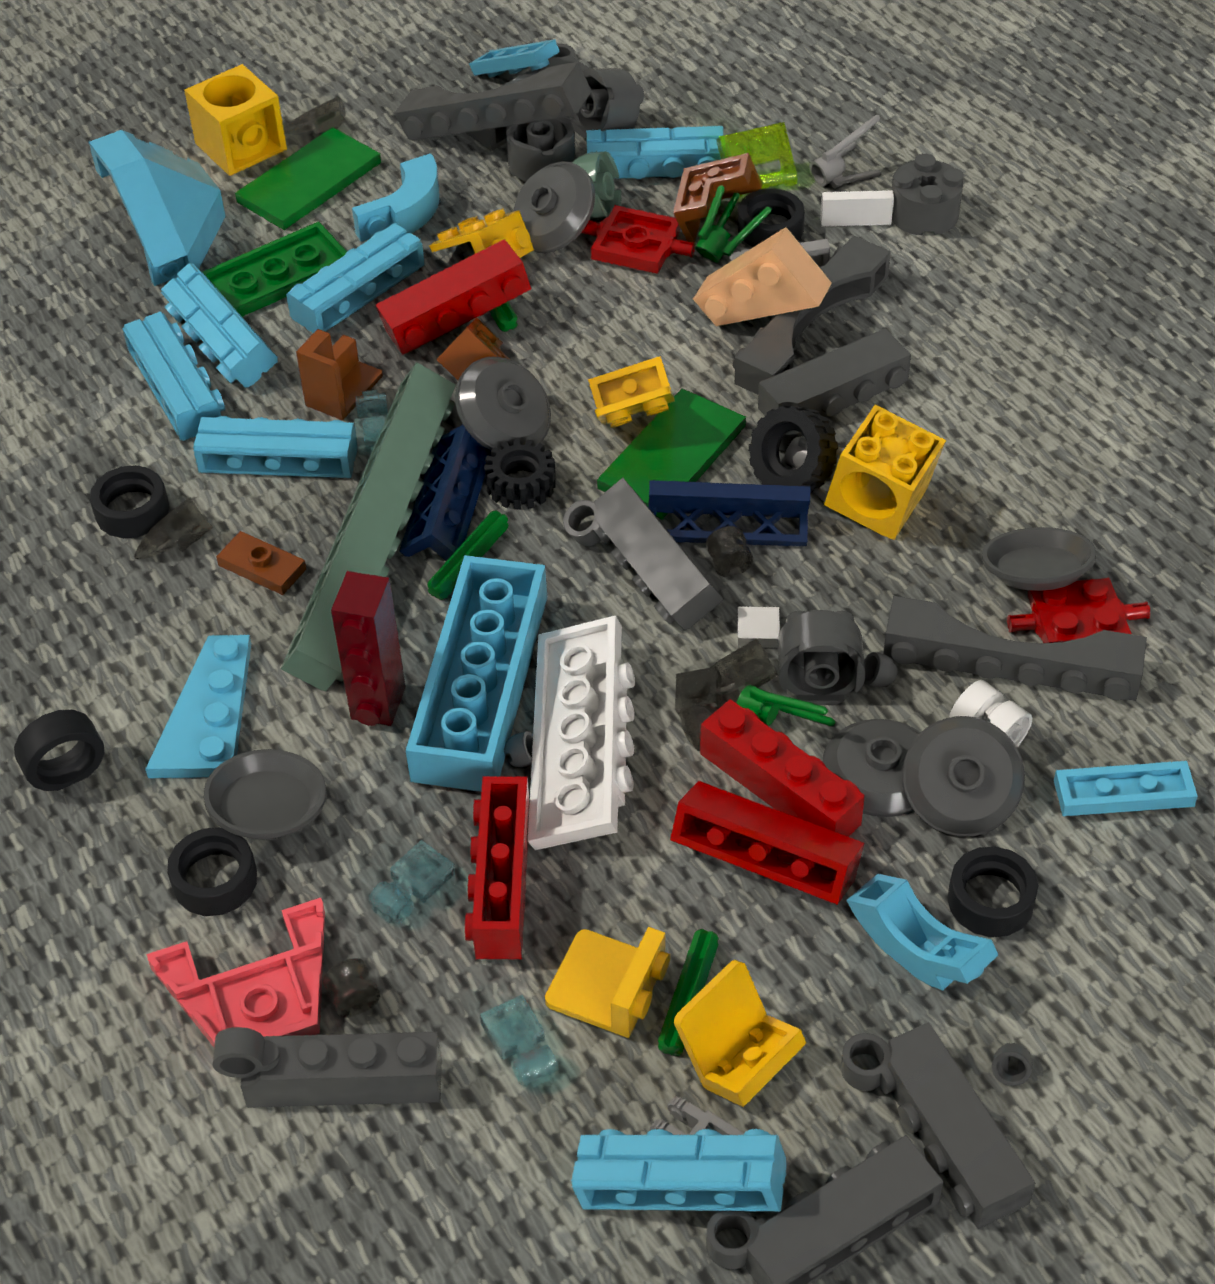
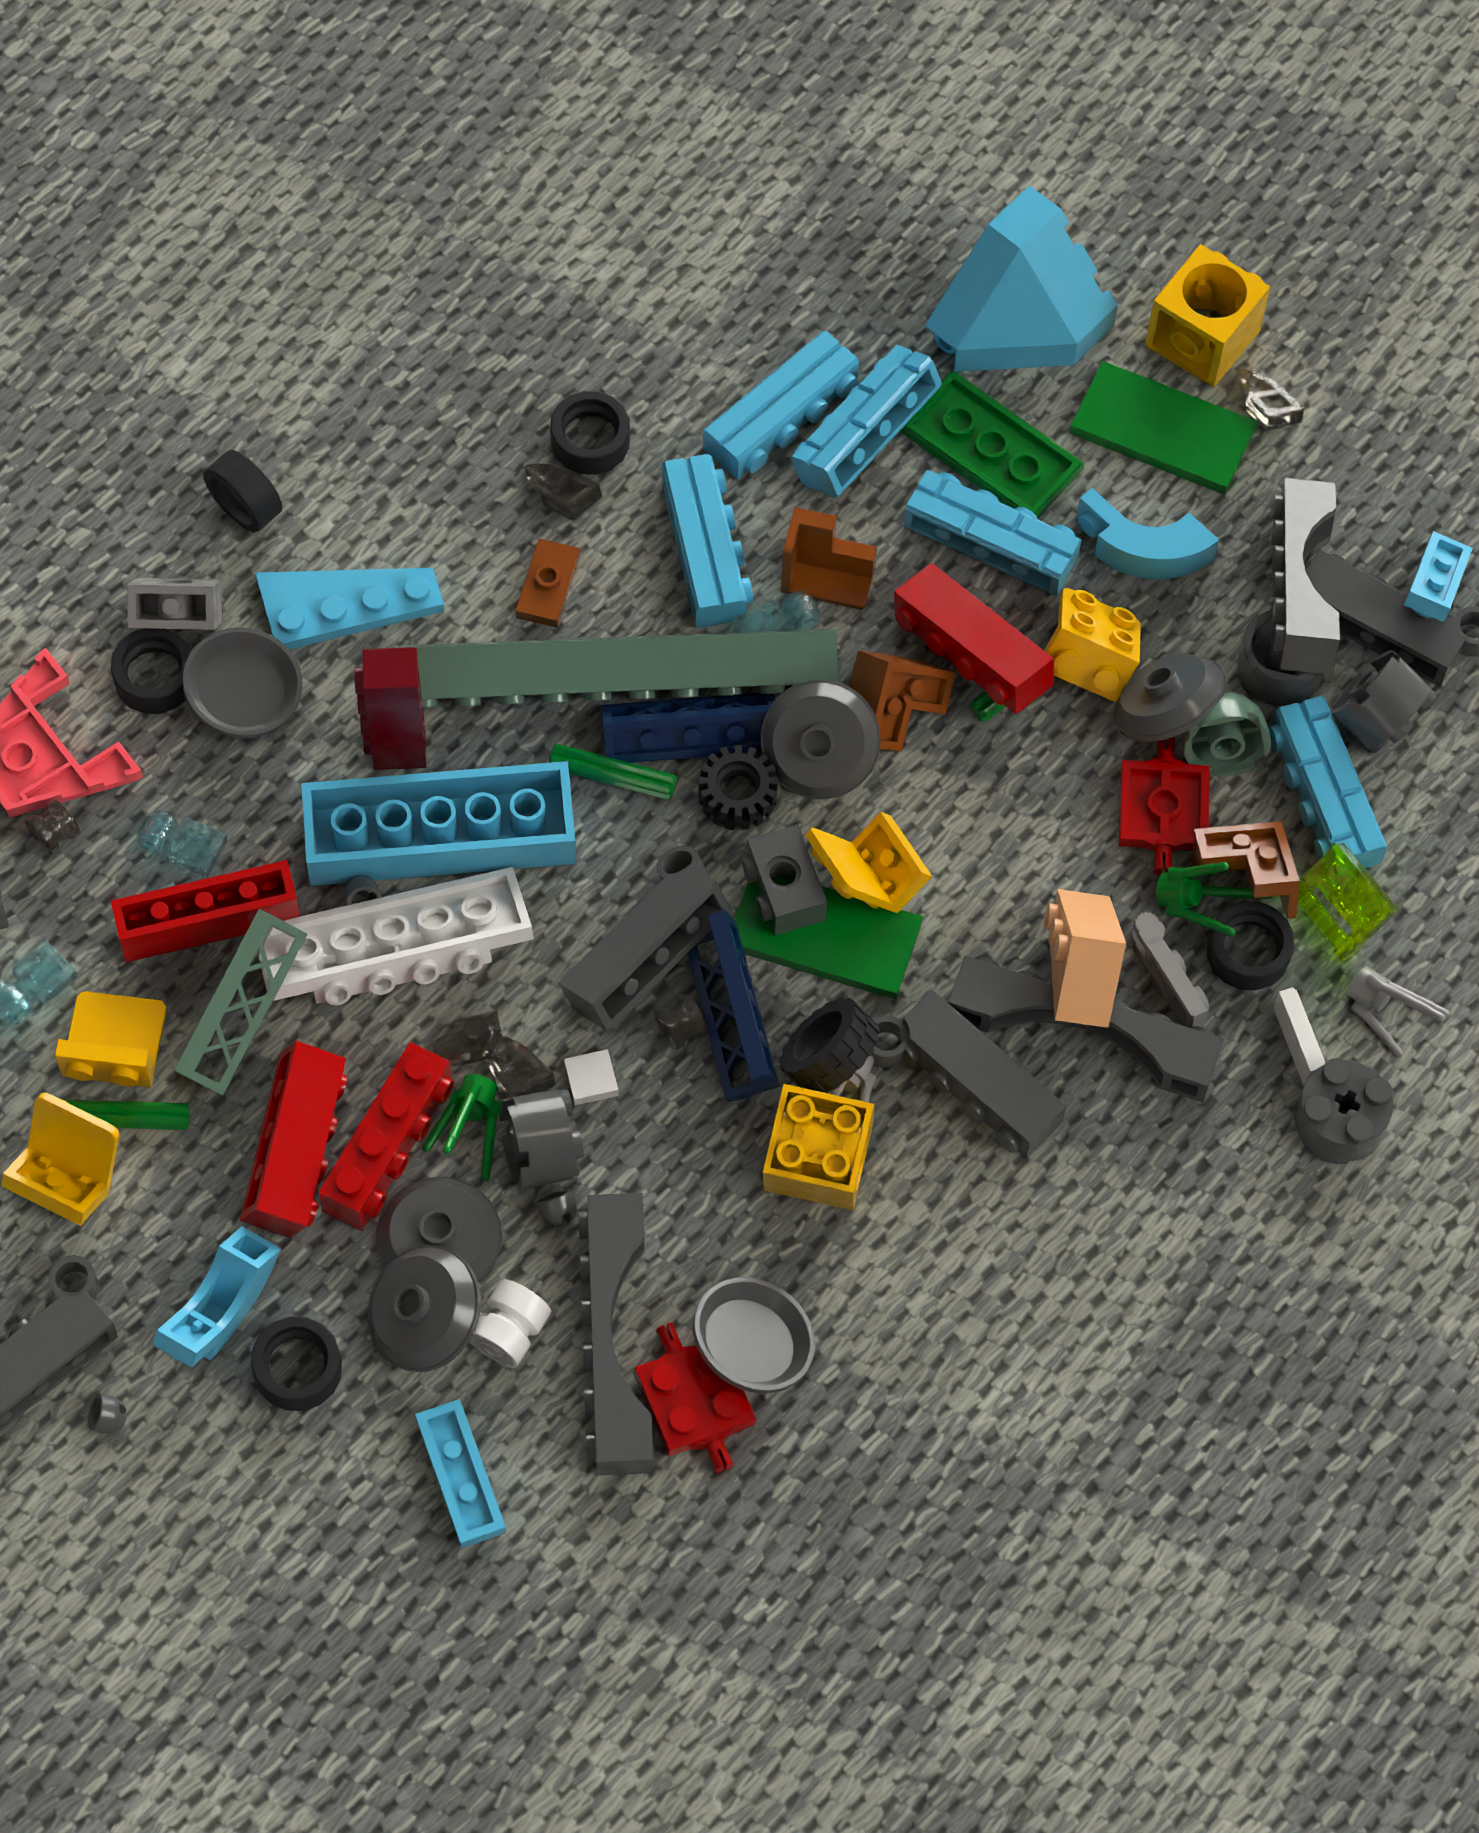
camera: 70 degrees right, 15 degrees up
(153, 830) = (174, 603): none -> light grey brick
(606, 855) = (225, 995): none -> sand green fence
(627, 449) = (784, 855): none -> dark grey brick

